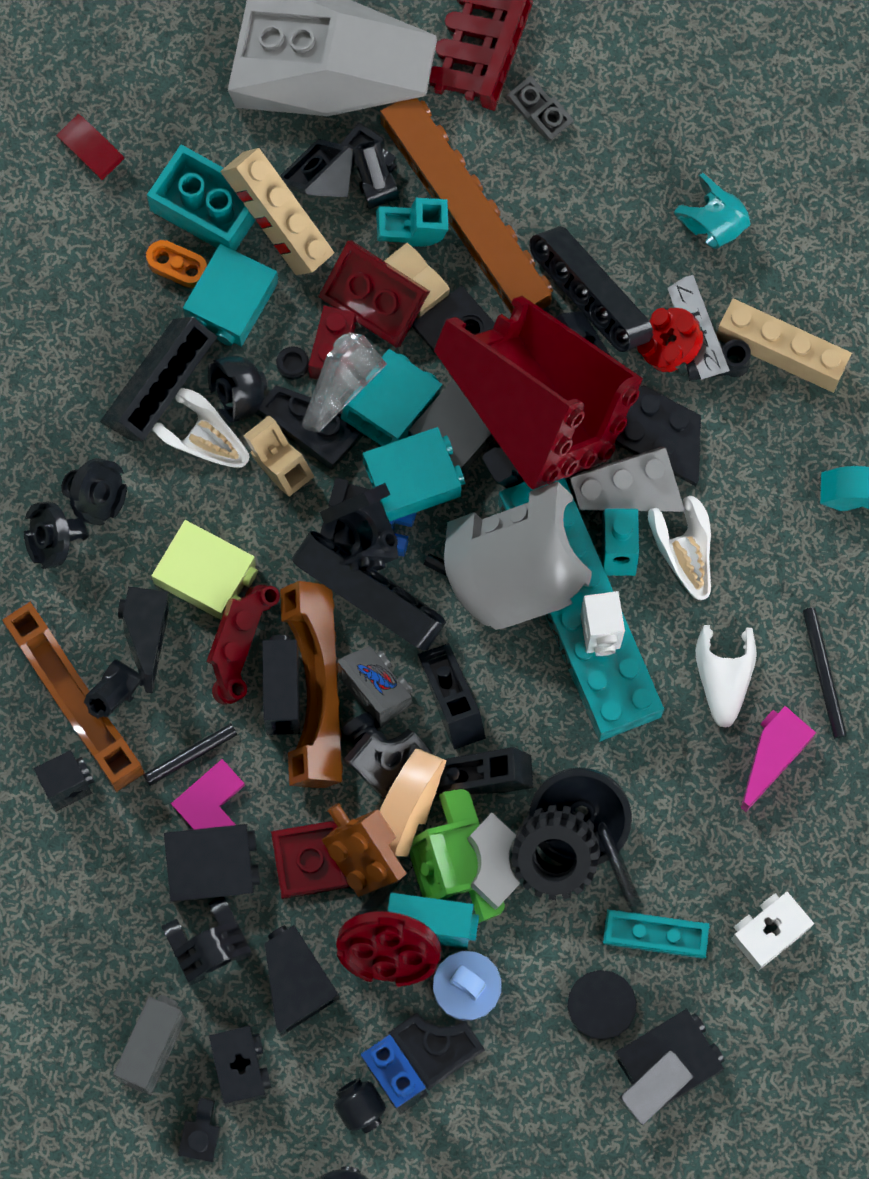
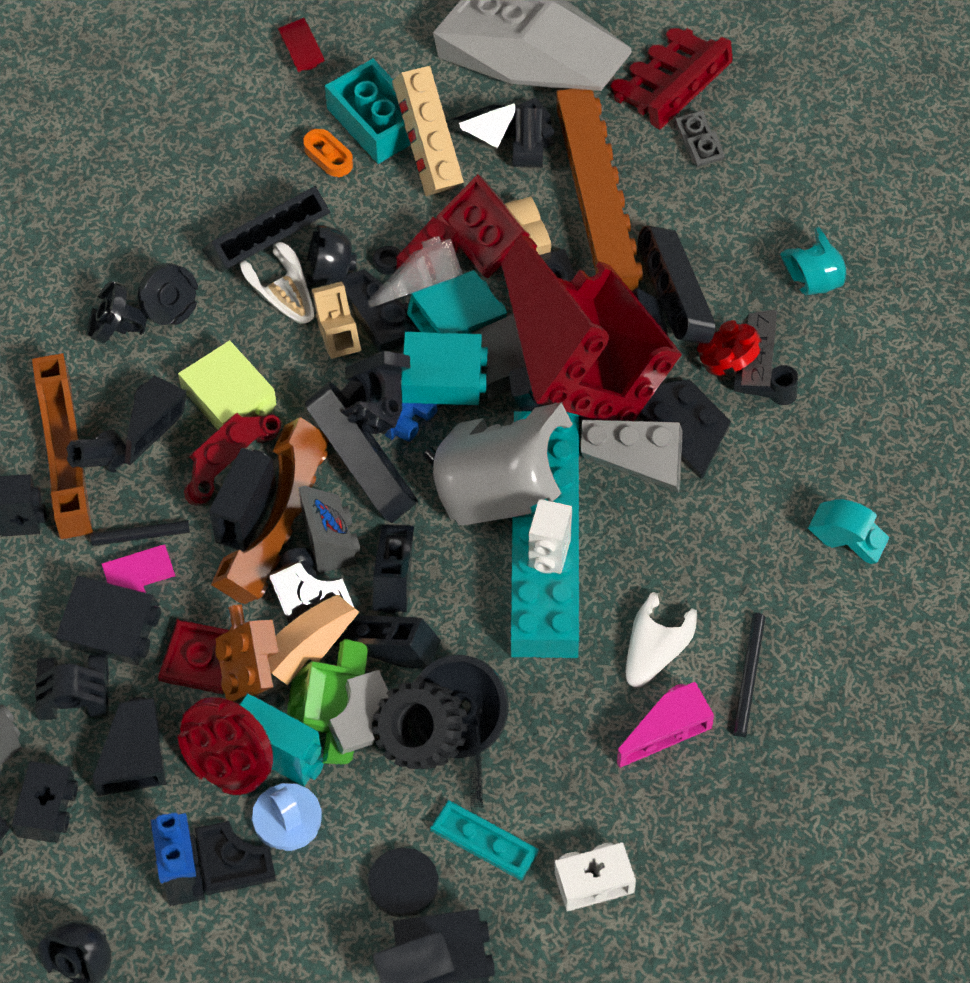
camera: 25 degrees right, 15 degrees down
(231, 295) = (361, 189): teal brick -> none
(360, 1105) = (135, 879): black head -> none
(418, 226) = (549, 188): teal brick -> none
(620, 539) = (610, 484): teal torso -> none
(687, 553) = (663, 529): white animal -> none
(784, 345) = (834, 389): tan brick -> none

